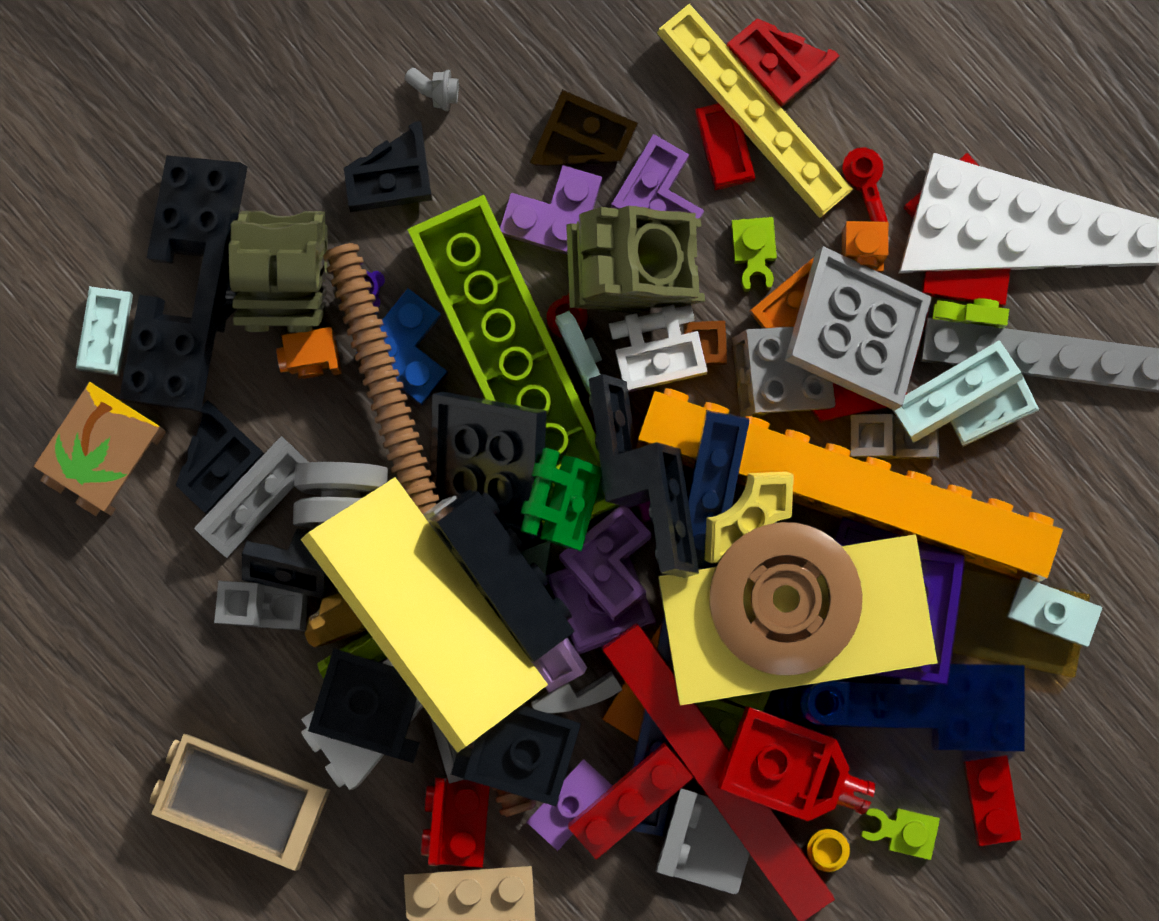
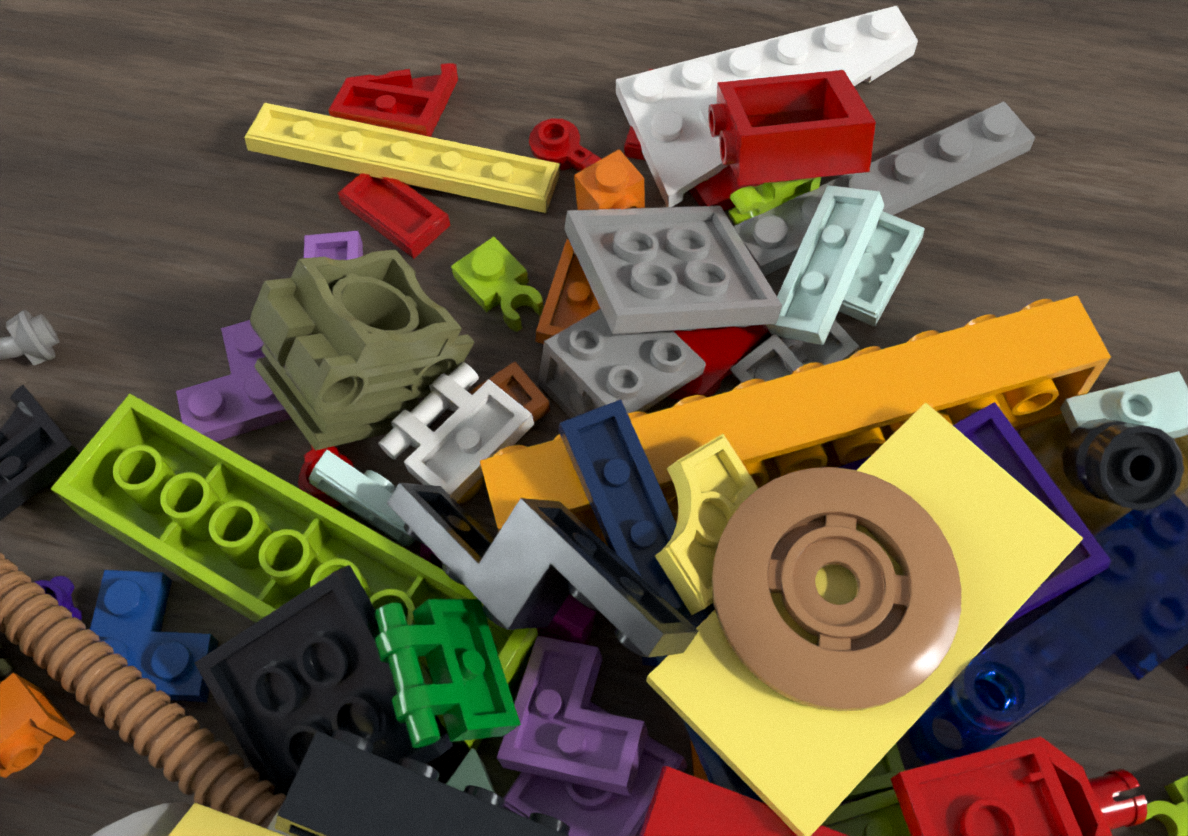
camera: 30 degrees left, 20 degrees down
(583, 134) = (221, 285): dark brown wing -> none
(990, 311) = (792, 127): none -> red window
(1009, 636) = (1123, 463): none -> black wheel

